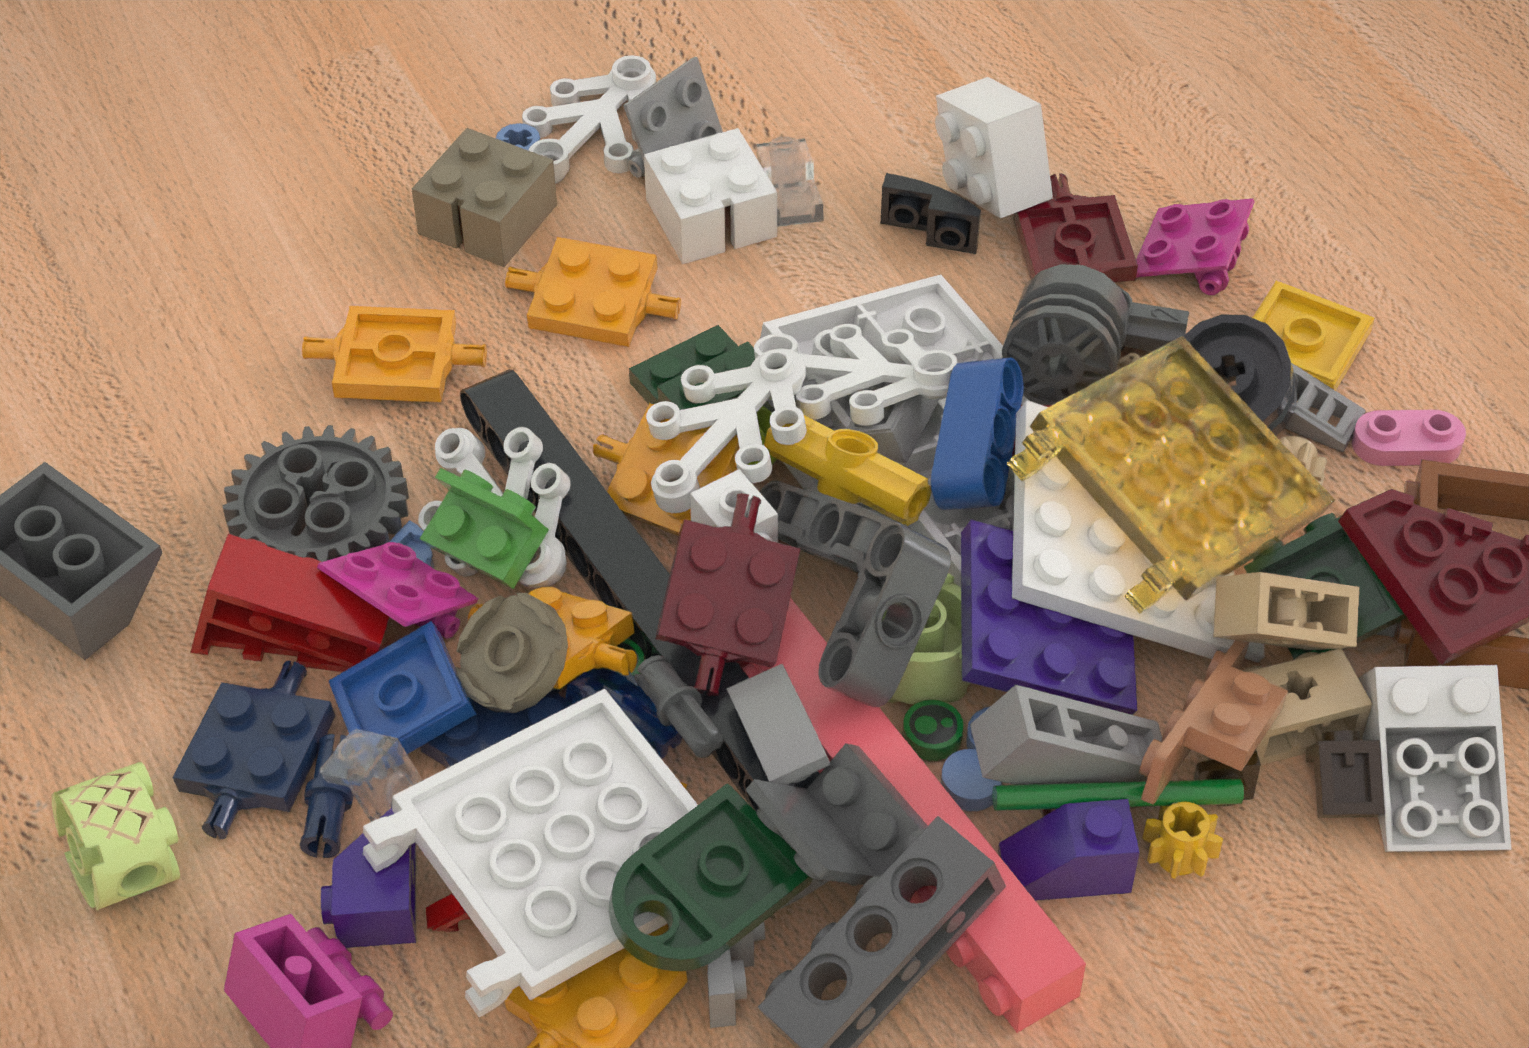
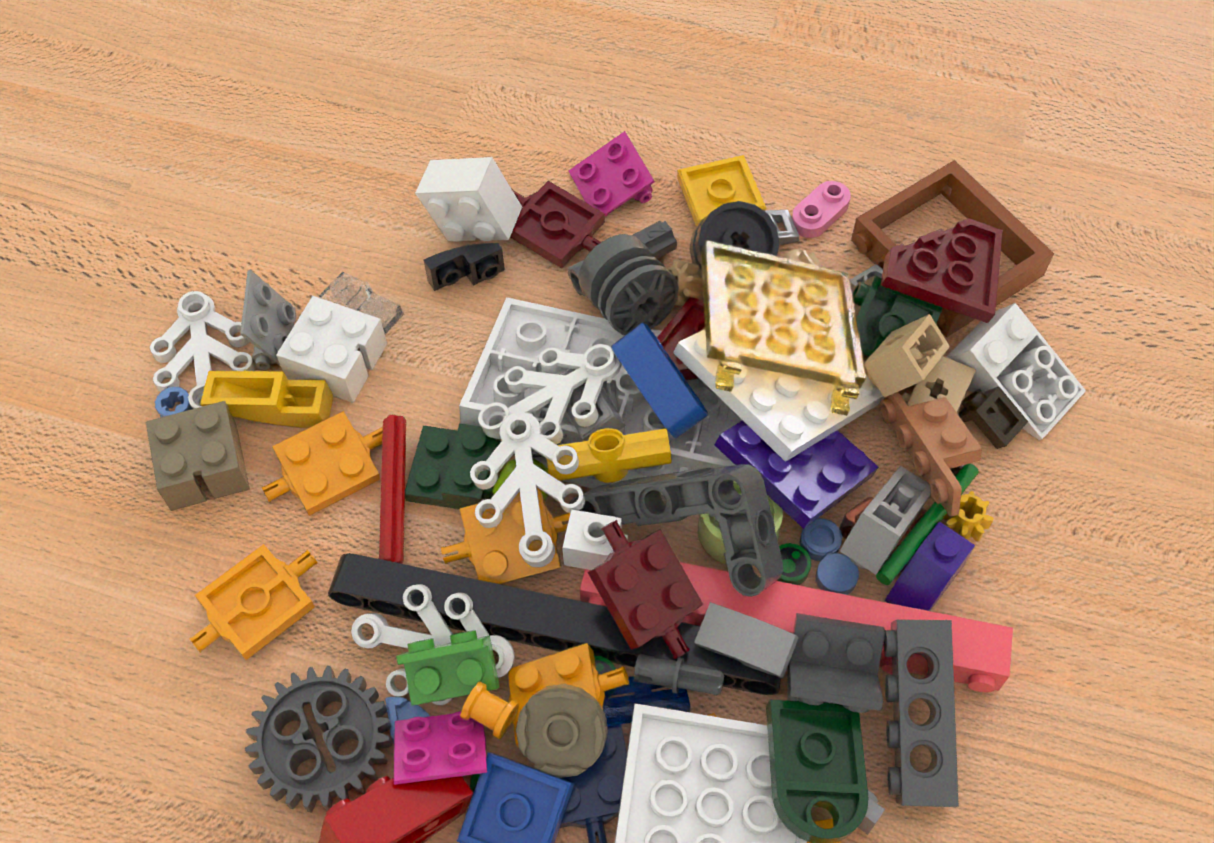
camera: 45 degrees left, 10 degrees up
(469, 580) = (489, 710): none -> light orange bush
(606, 195) = (269, 397): none -> yellow slope
(623, 355) = (393, 489): none -> red axle

